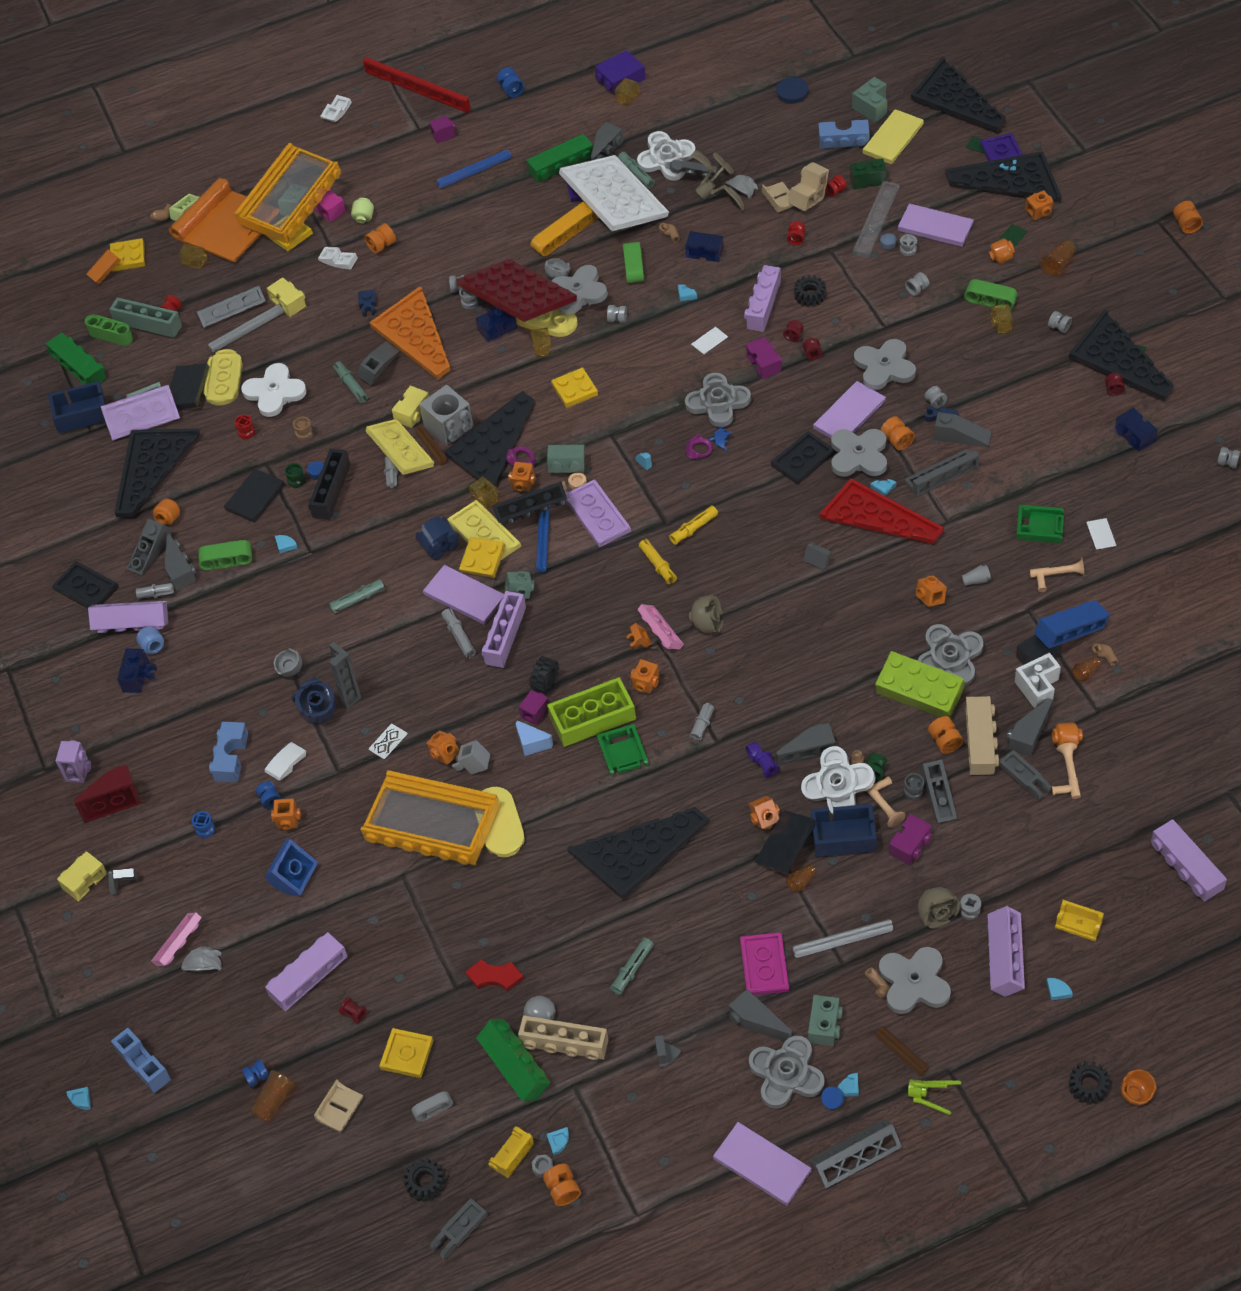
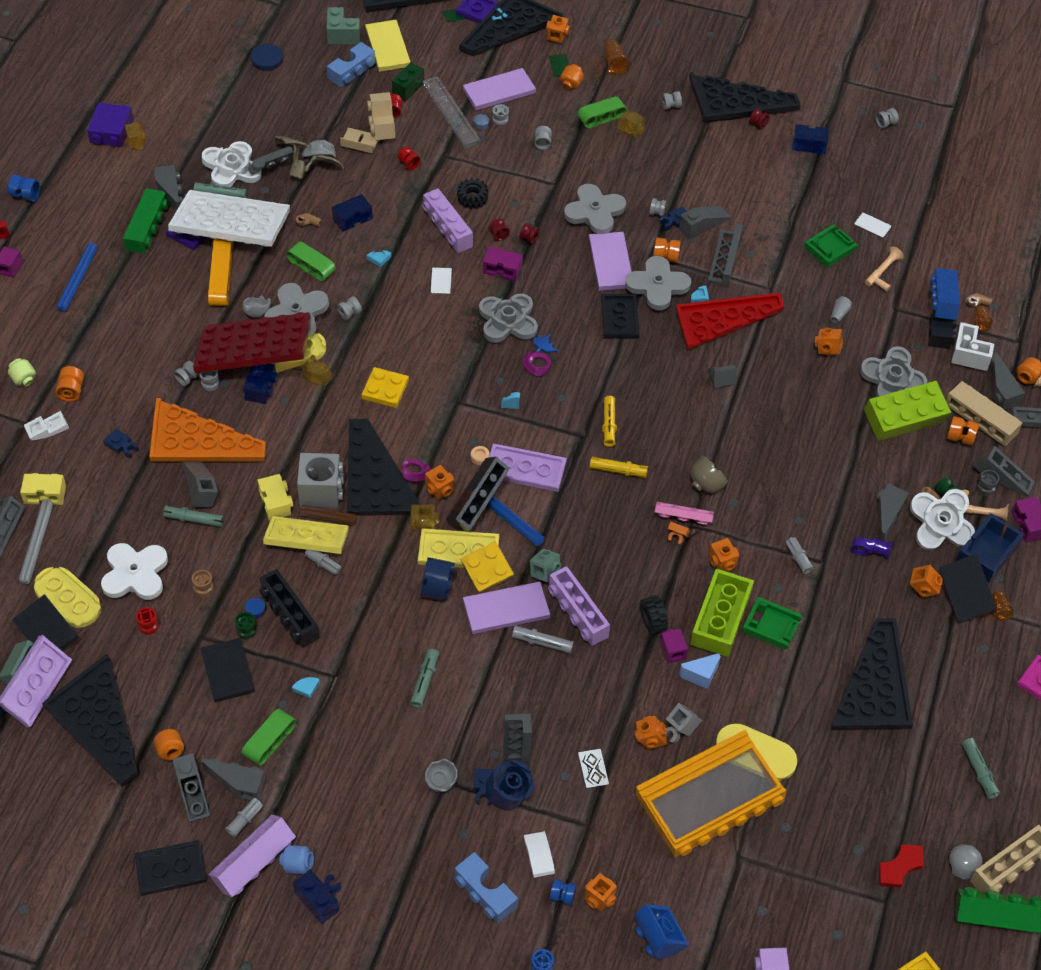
camera: 55 degrees left, 0 degrees up
(566, 458) = (455, 443): sand green brick -> none

